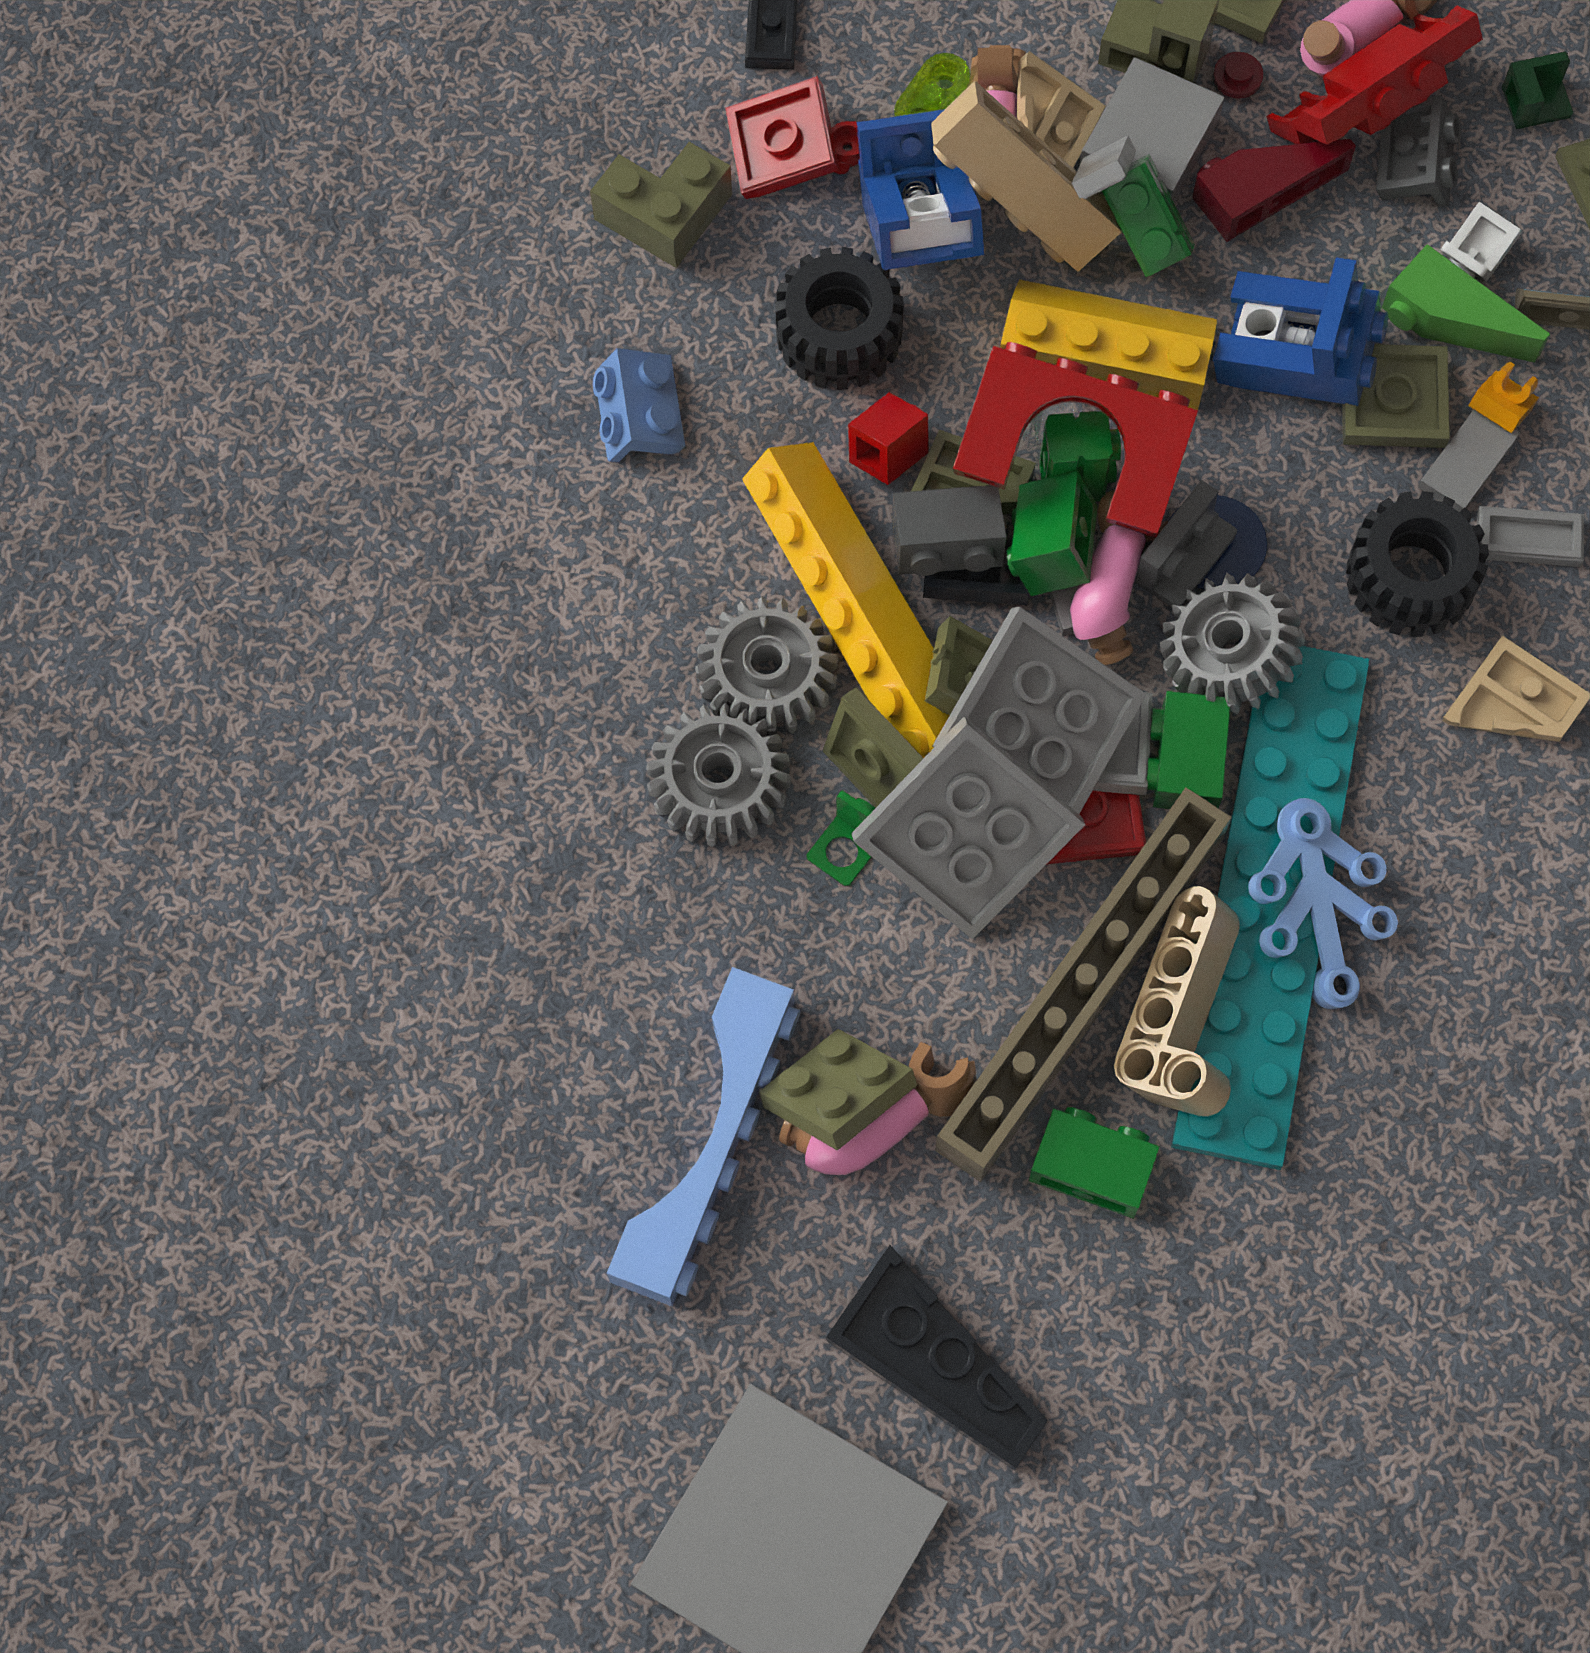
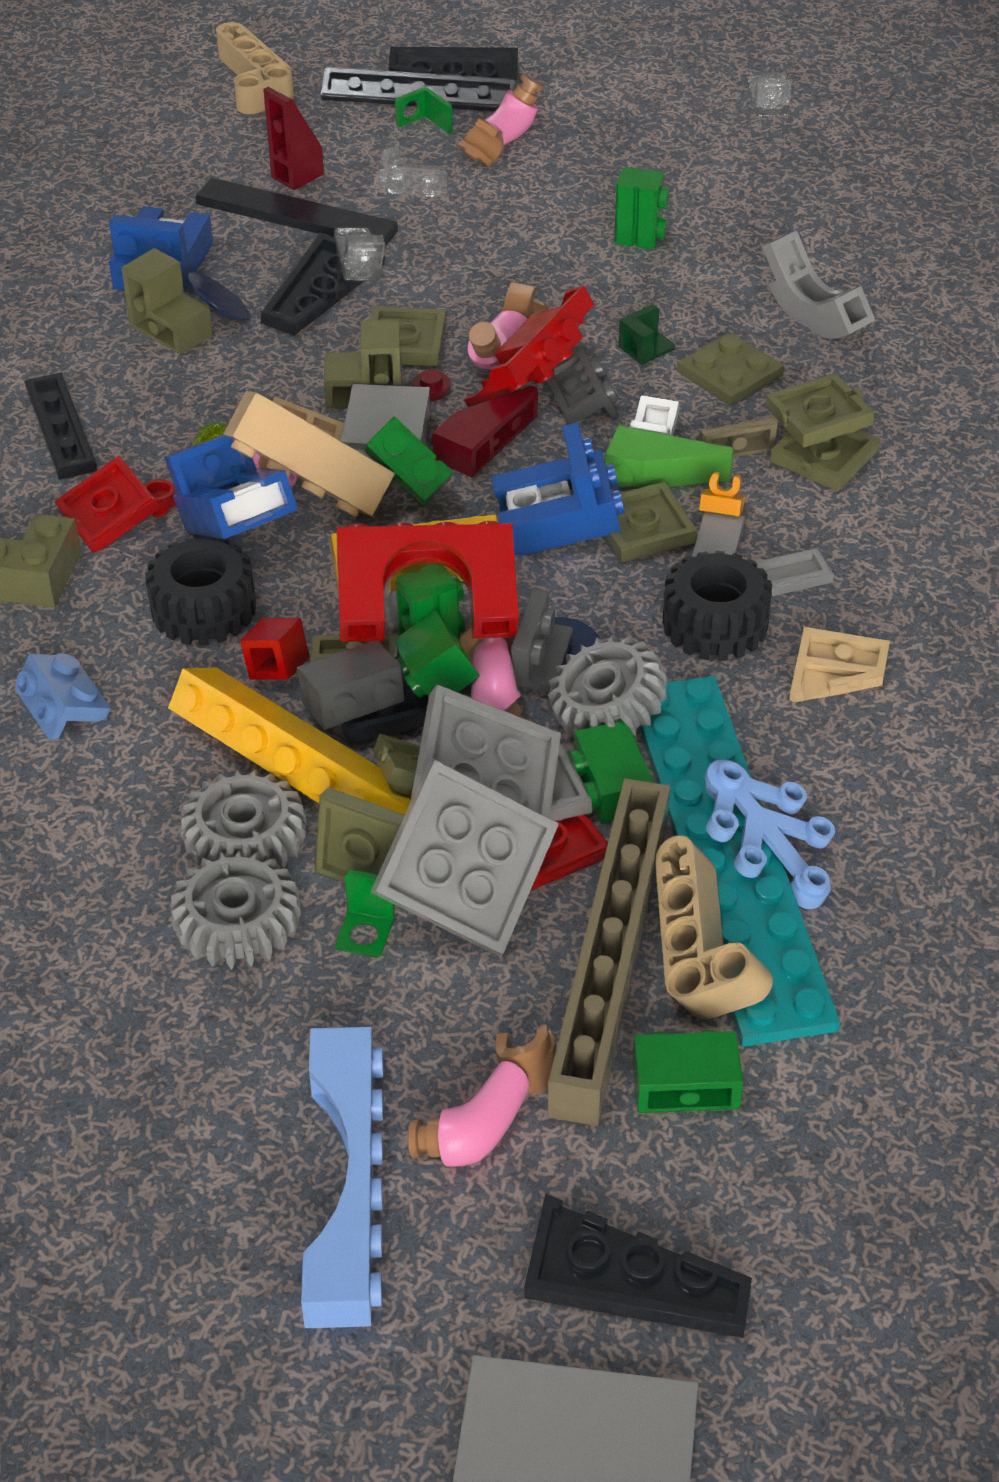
camera: 25 degrees left, 25 degrees down
(838, 1089) = (443, 1085): olive plate -> none
(1104, 168) = (365, 431): light grey tile -> none

